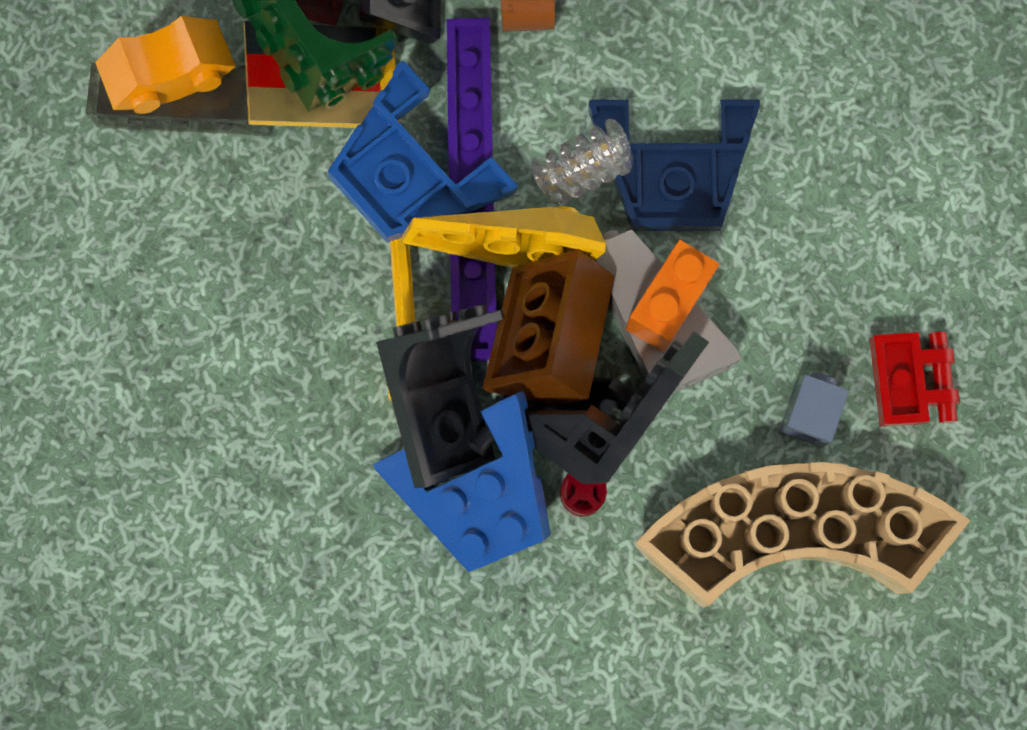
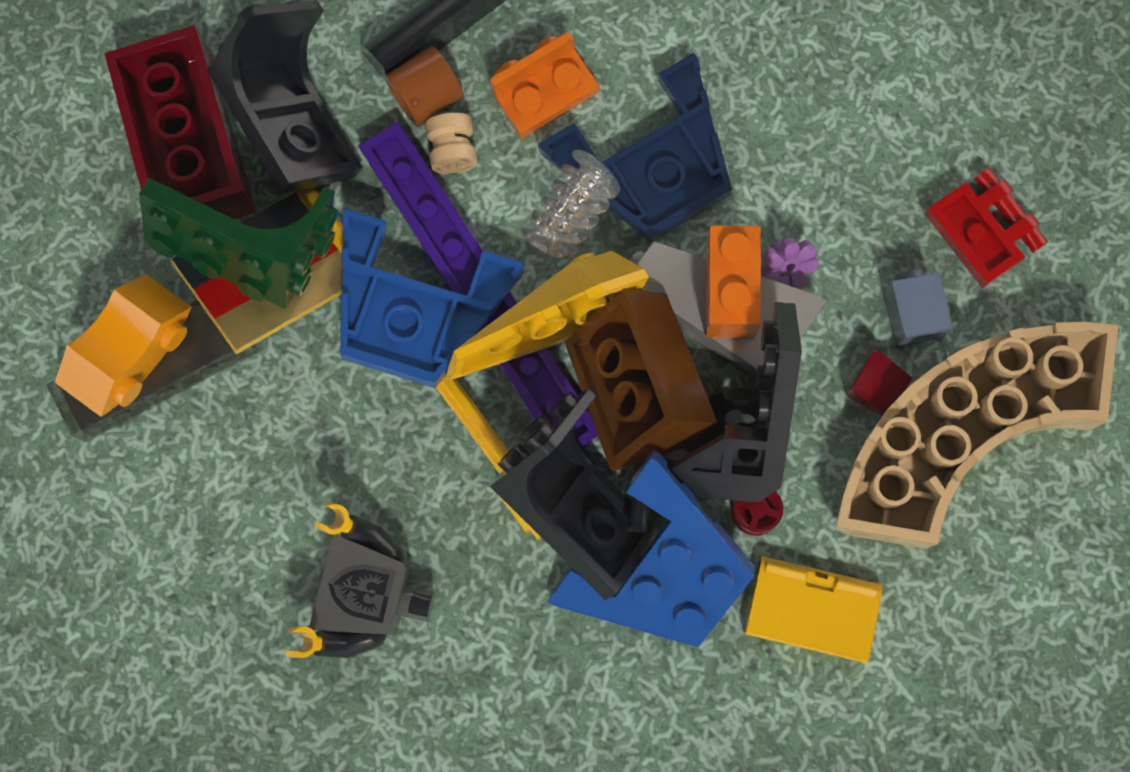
camera: 25 degrees left, 0 degrees up
(231, 366) = (360, 591): none -> torso
(521, 59) = (451, 143): none -> tan wheel
(580, 599) = (814, 609): none -> yellow piece
(623, 55) = (542, 84): none -> orange bracket
(732, 311) = (789, 261): none -> medium lavender plant
(745, 450) = (879, 383): none -> dark red slope

